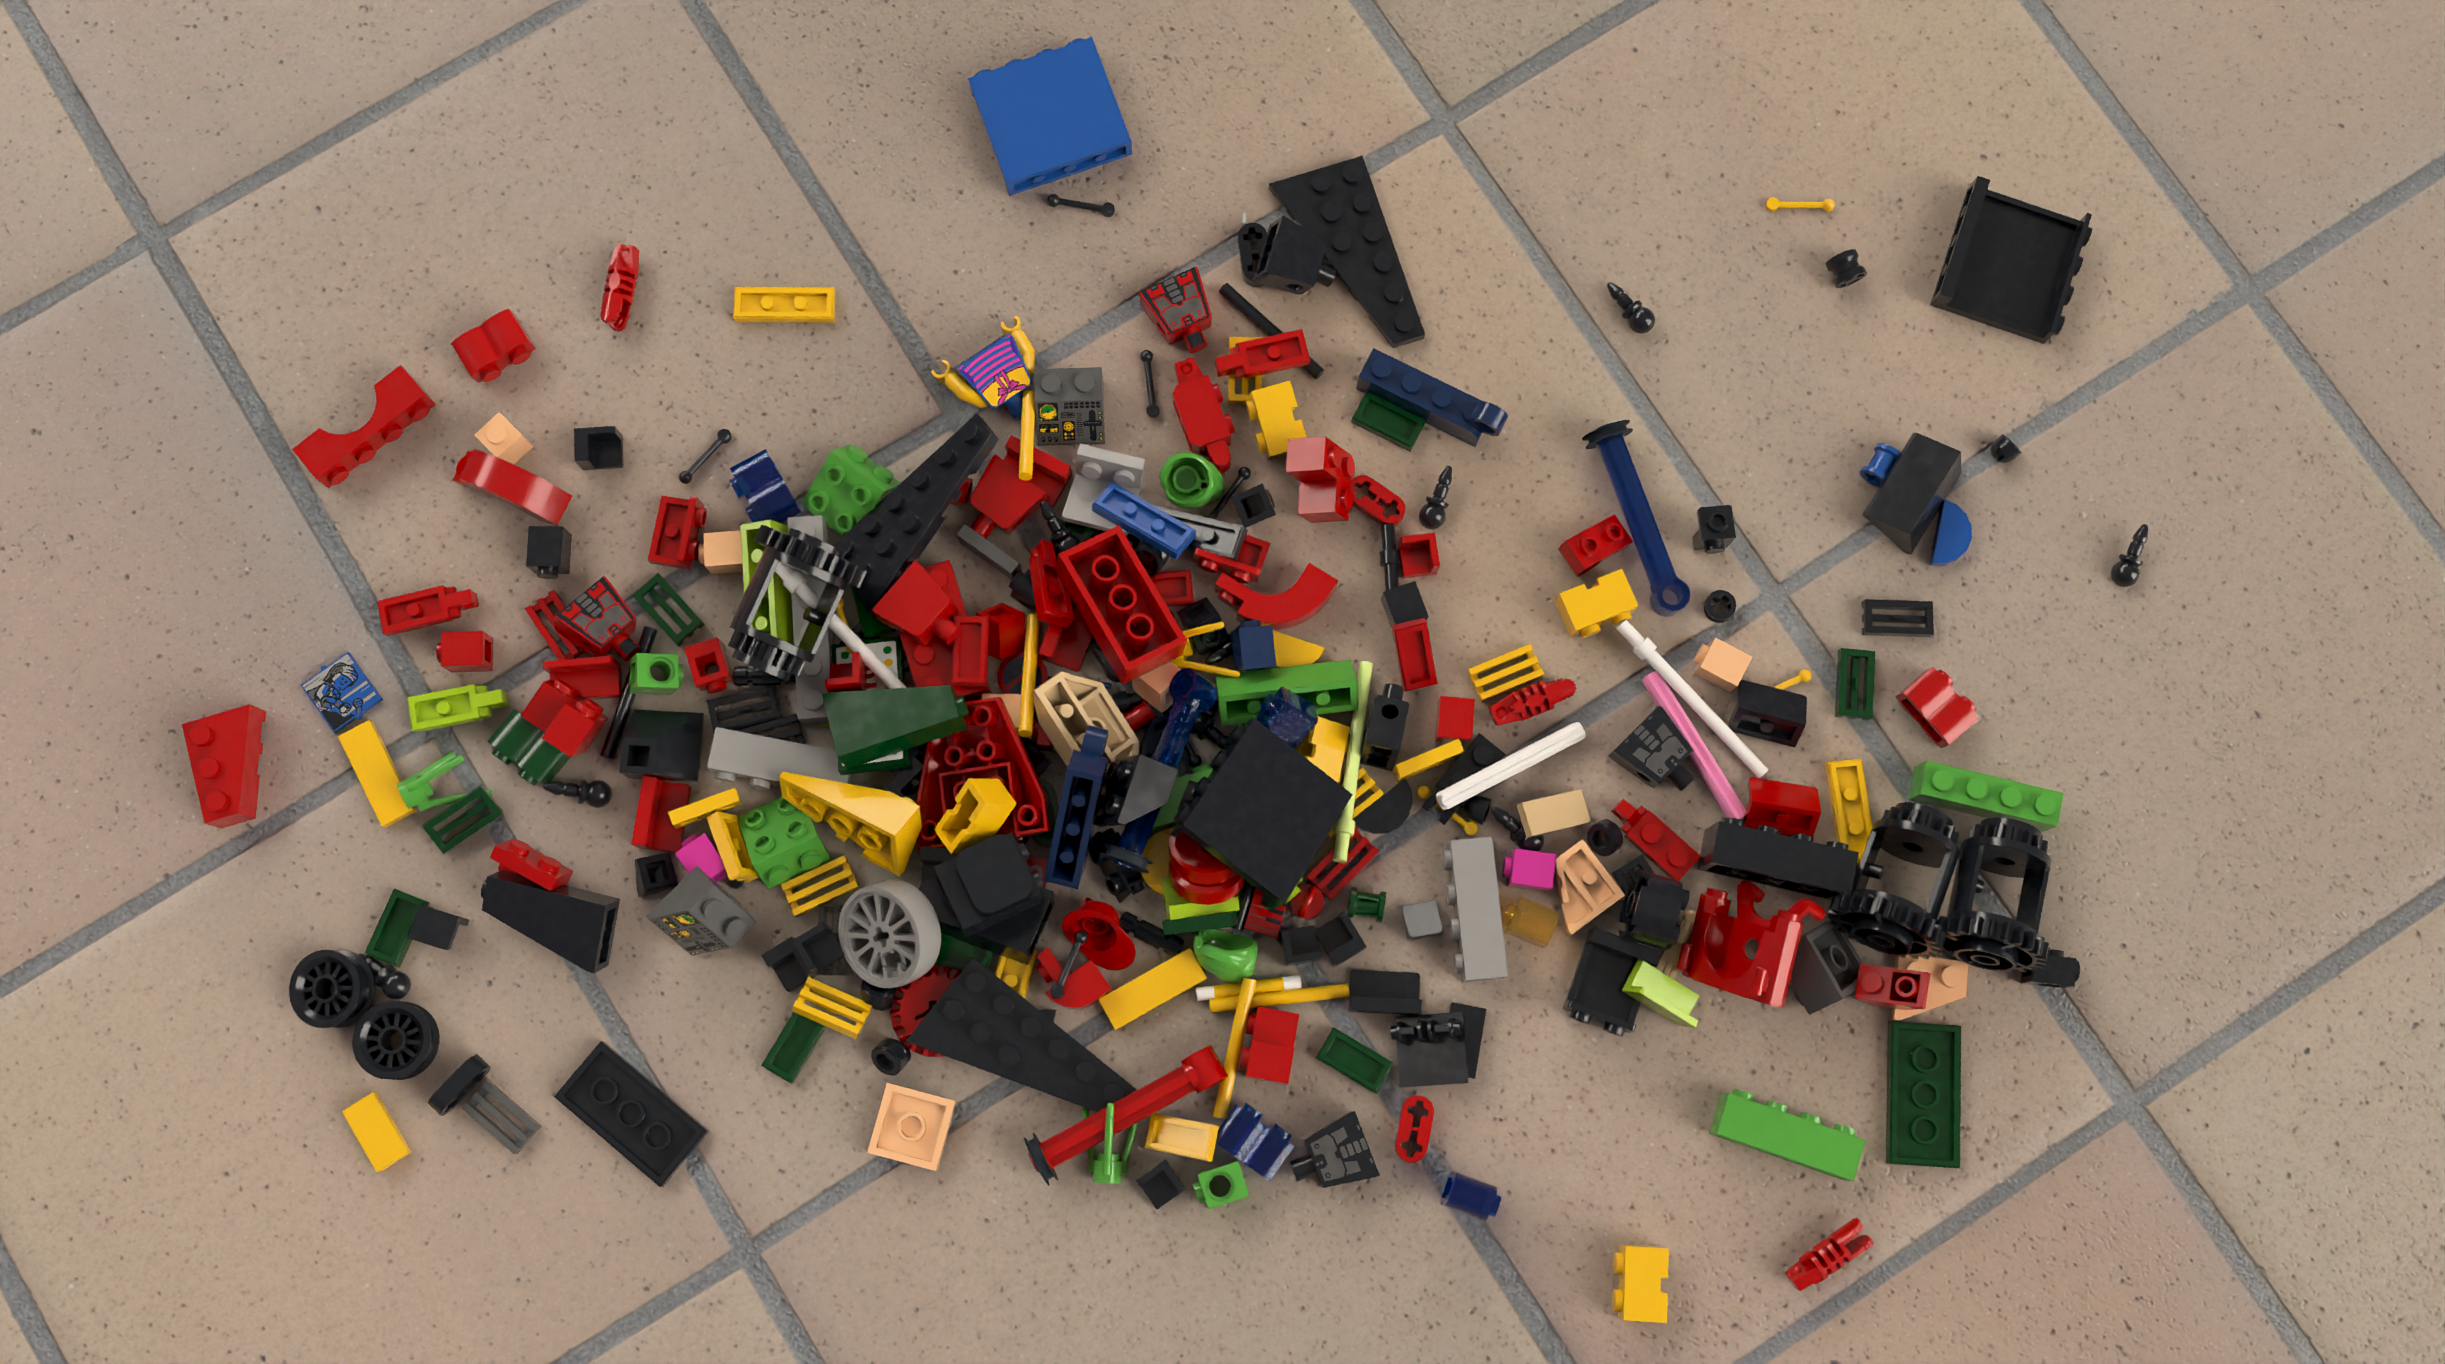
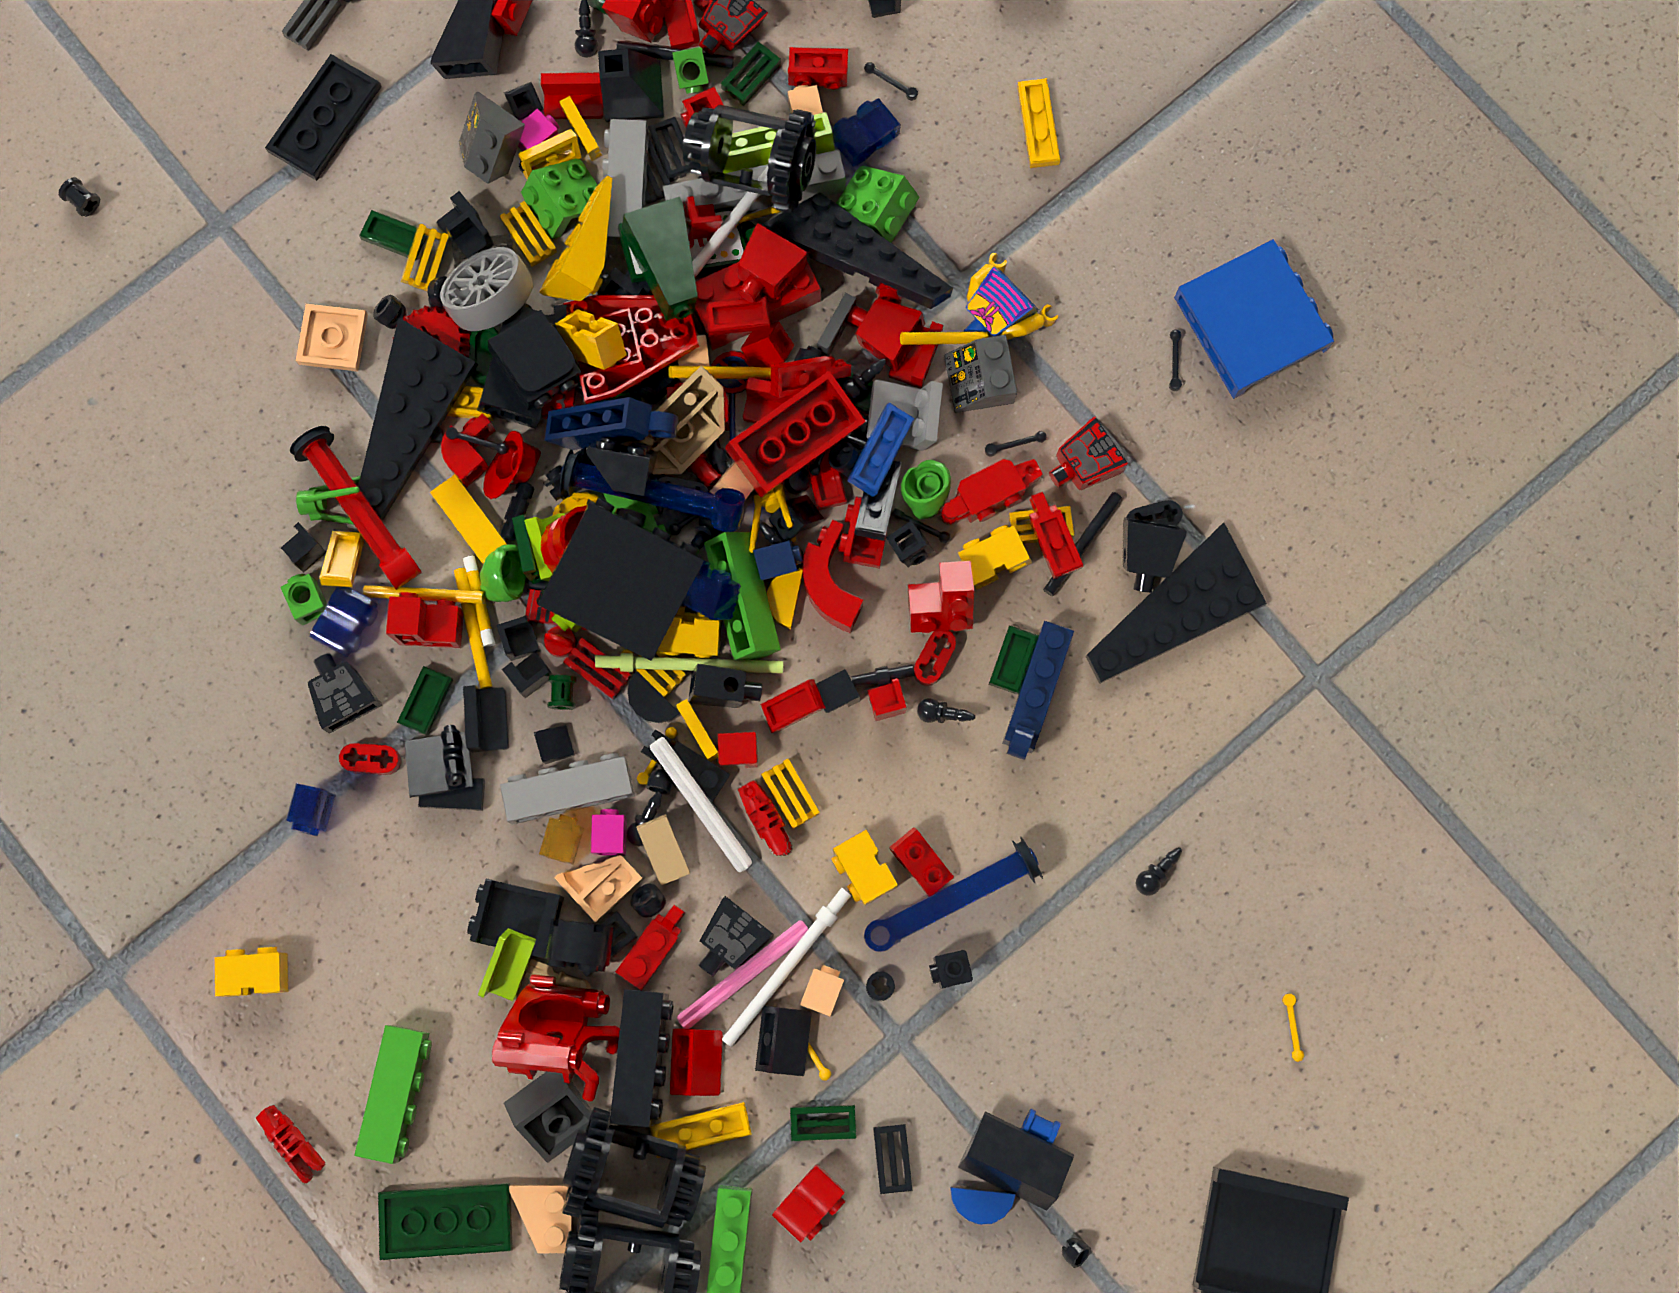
camera: 85 degrees right, 0 degrees up
(1846, 268) = (1233, 1076): black wheel -> none
(1892, 987) = (533, 1174): red slope -> none

